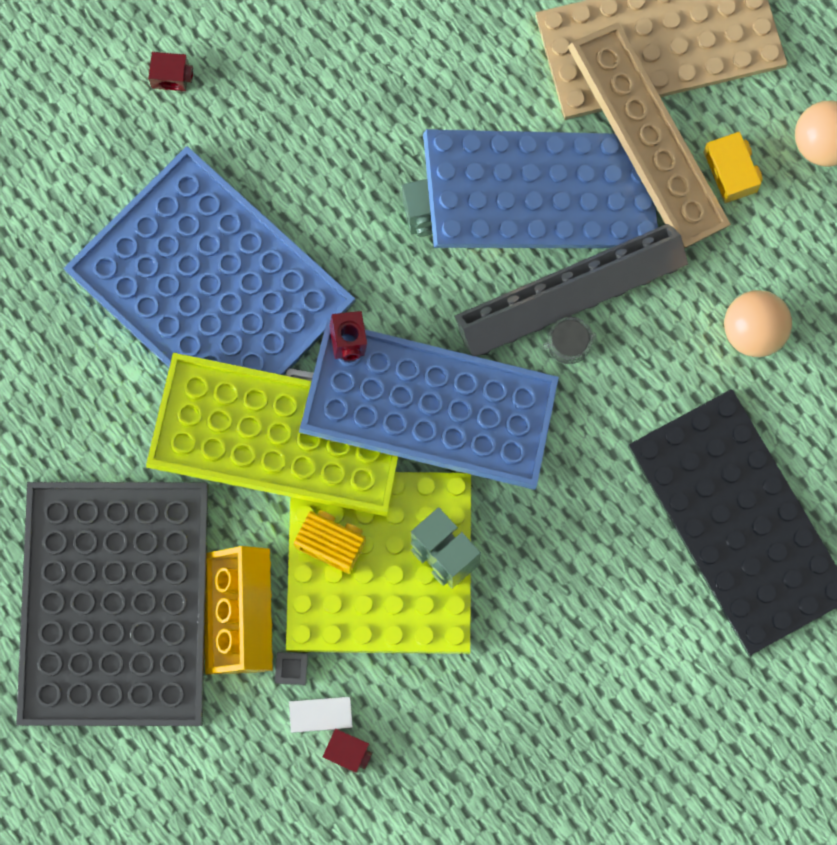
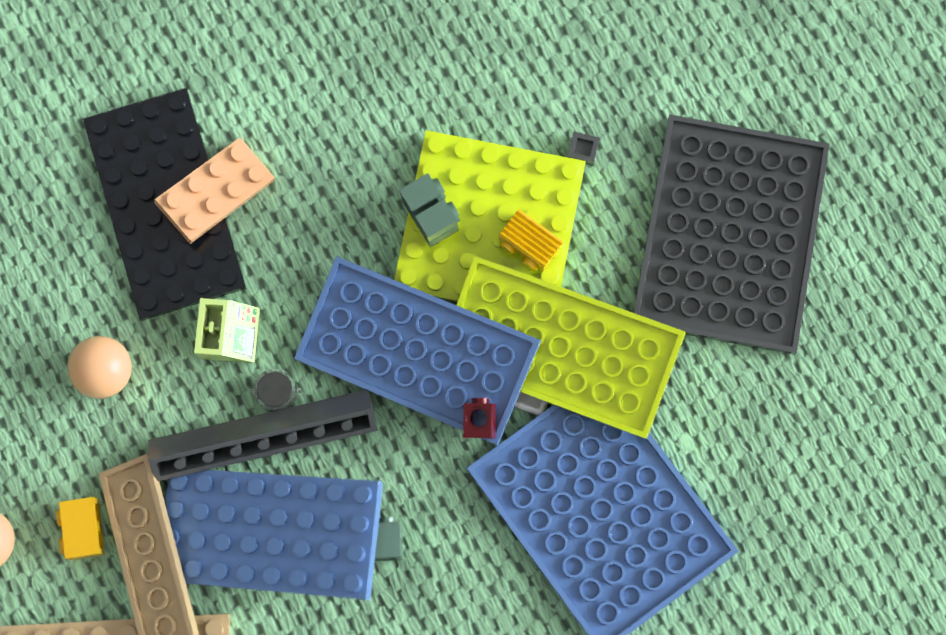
camera: 170 degrees left, 0 degrees up
(238, 611) = (622, 203): yellow slope -> none
(320, 714) = (564, 108): white tile -> none
(347, 751) = (547, 71): dark red brick -> none
(635, 390) = (226, 331): none -> yellowish green slope
(686, 539) = (214, 190): none -> light nougat plate

